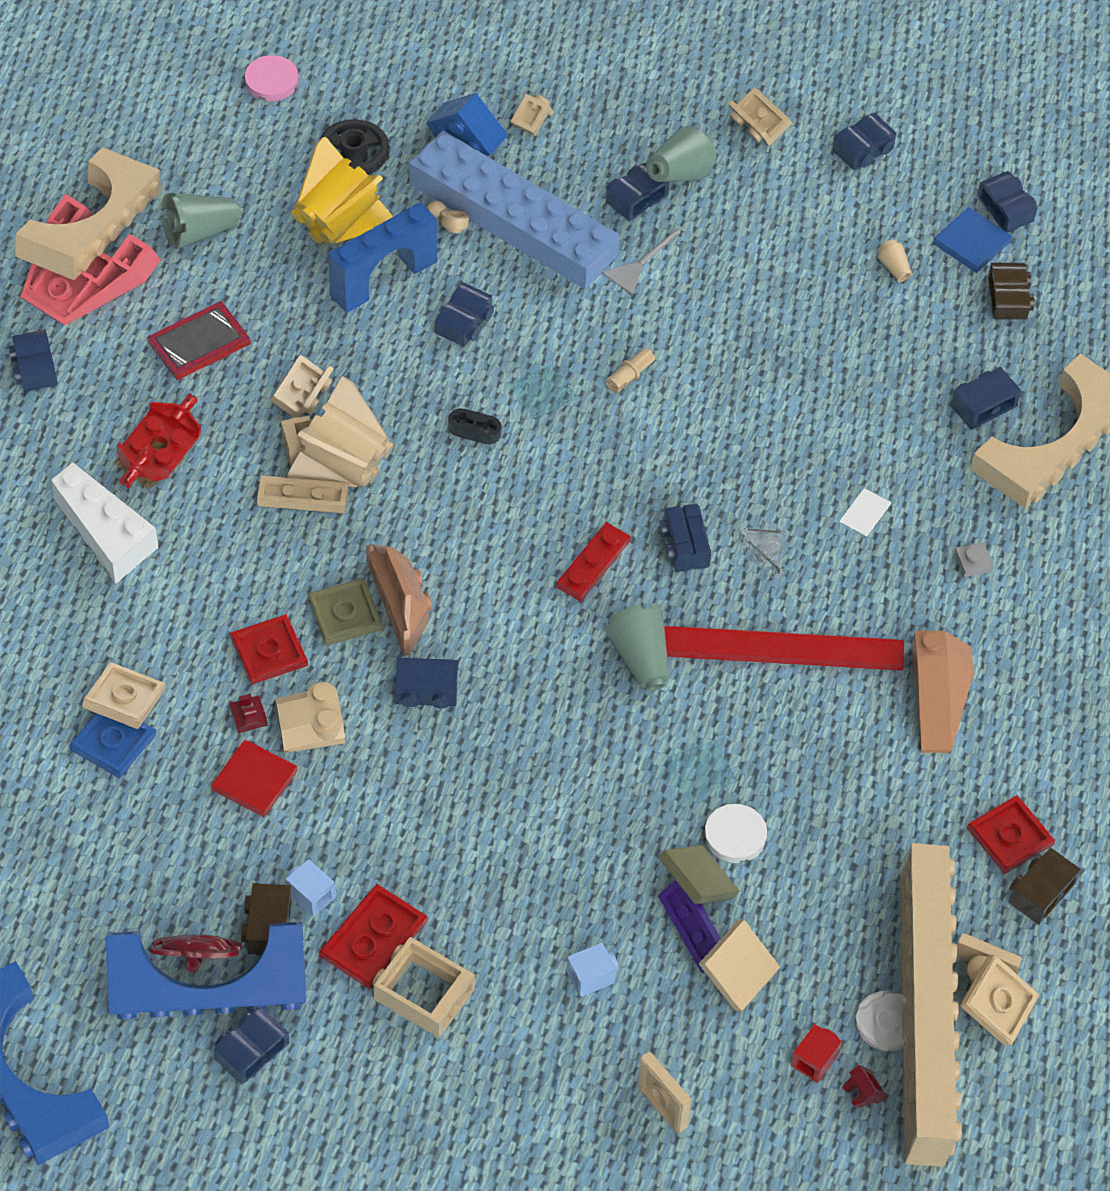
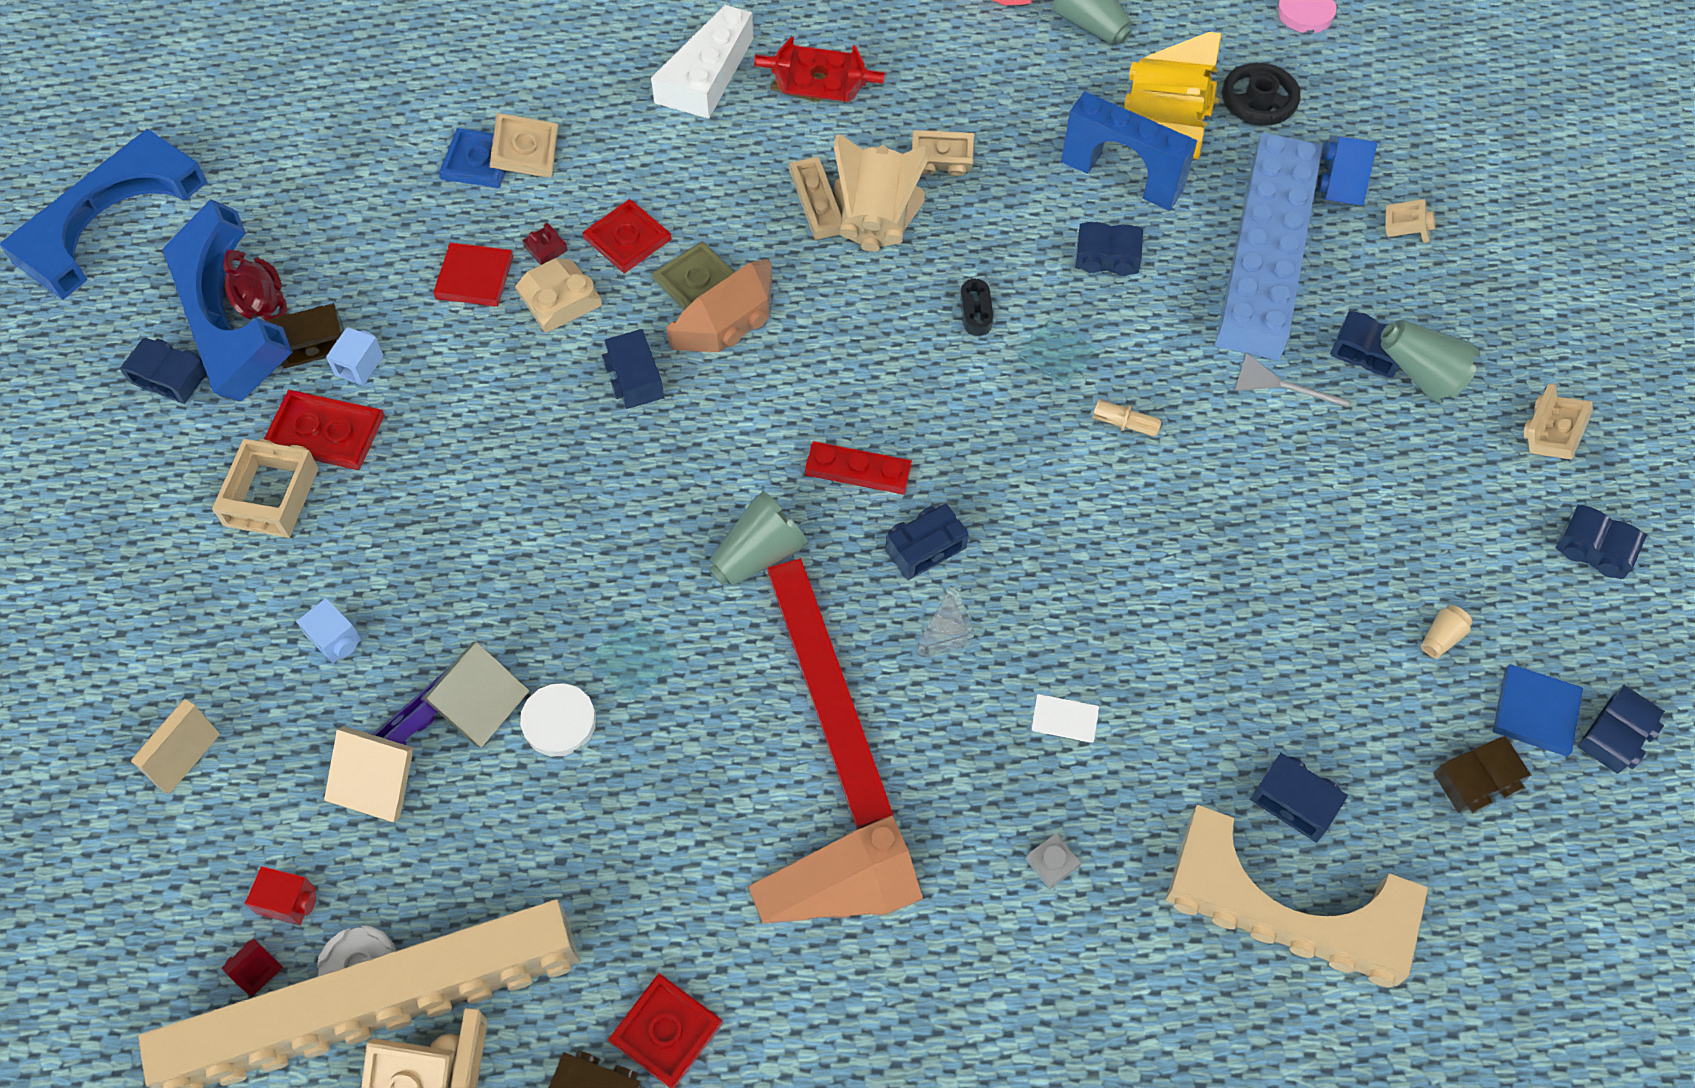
camera: 70 degrees right, 5 degrees up
(199, 340) = (959, 64): tile -> none
(453, 220) = (1225, 199): tan plate -> none

